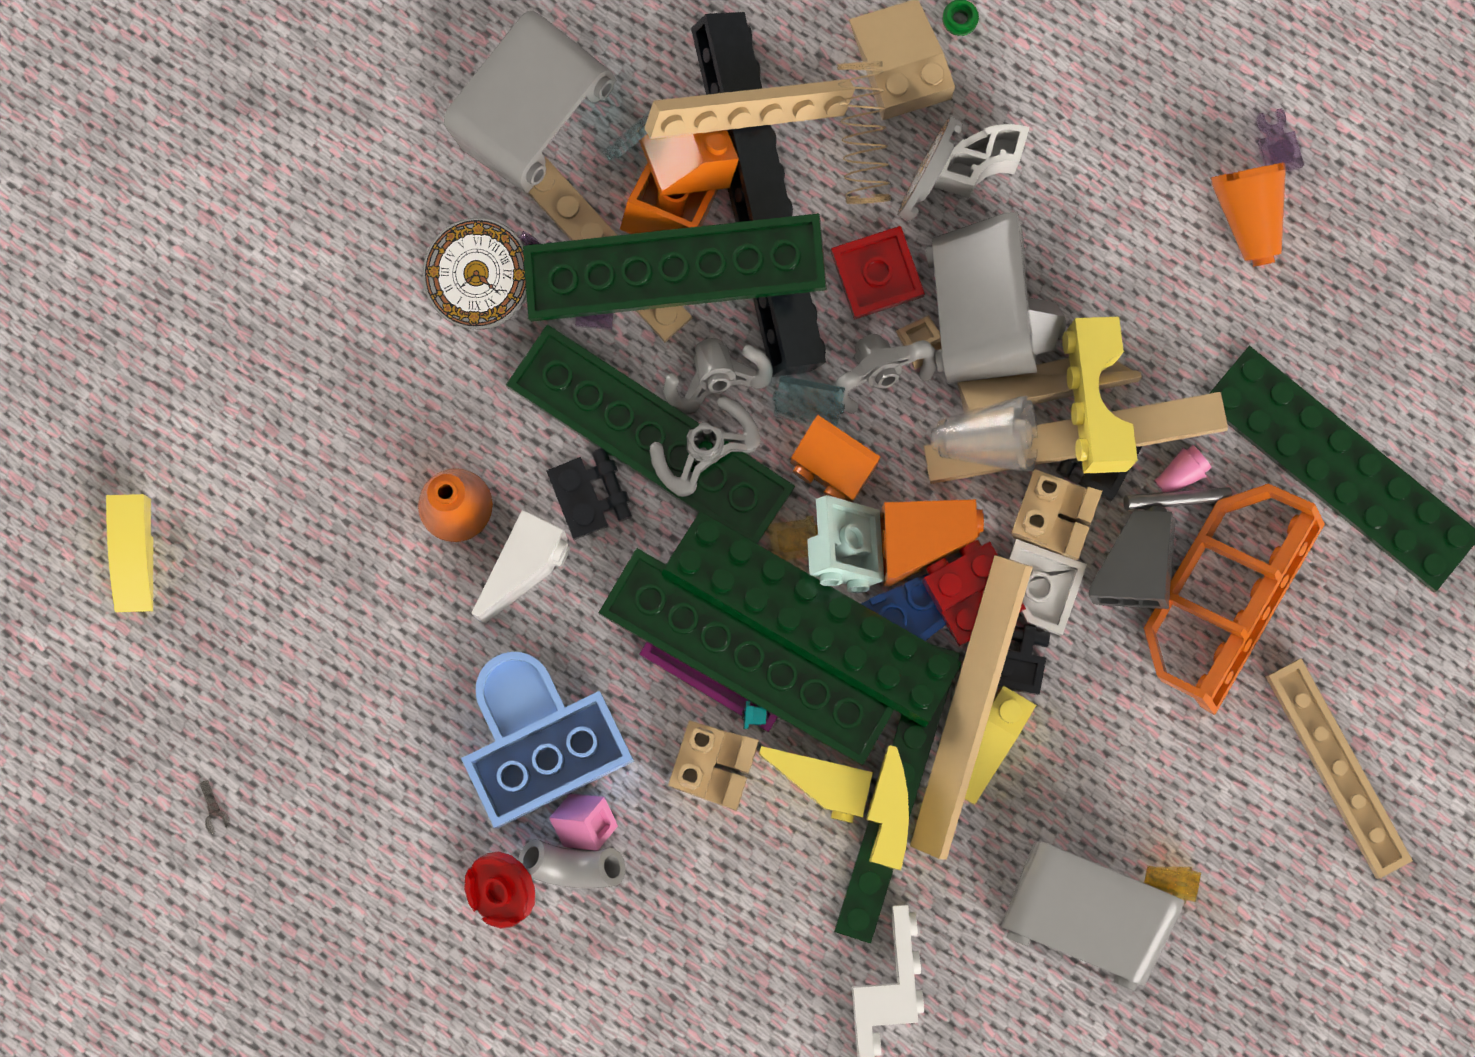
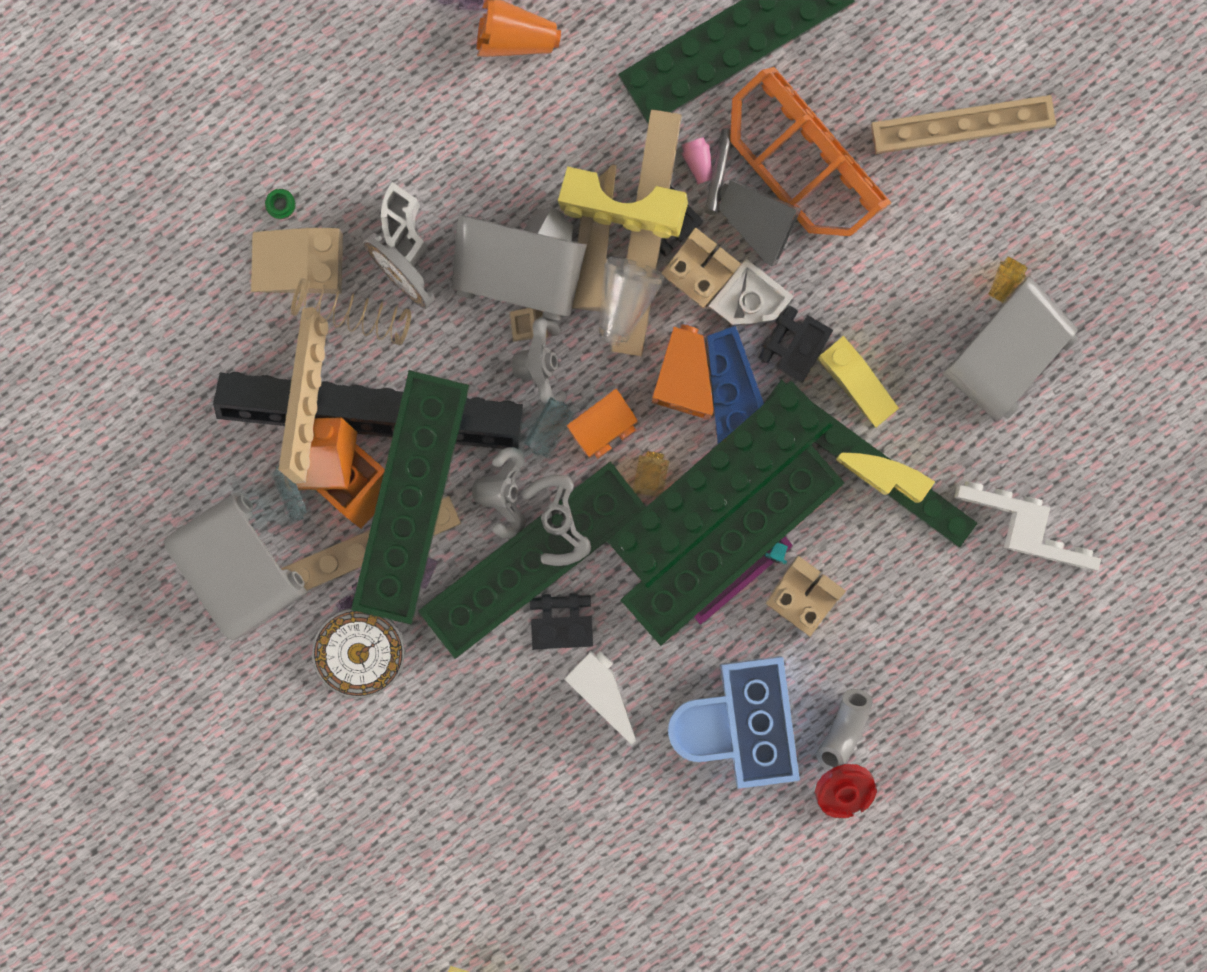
camera: 65 degrees left, 5 degrees up
(463, 513) = (538, 715): orange cone -> none
(583, 822) = (814, 710): bright pink panel -> none
(827, 783) = (849, 512): light yellow slope -> none
(846, 545) = (671, 437): light aqua plate -> none
(877, 272) = (463, 340): red plate -> none
(960, 587) = (740, 353): red plate -> none
(970, 707) = (827, 385): tan tile -> none

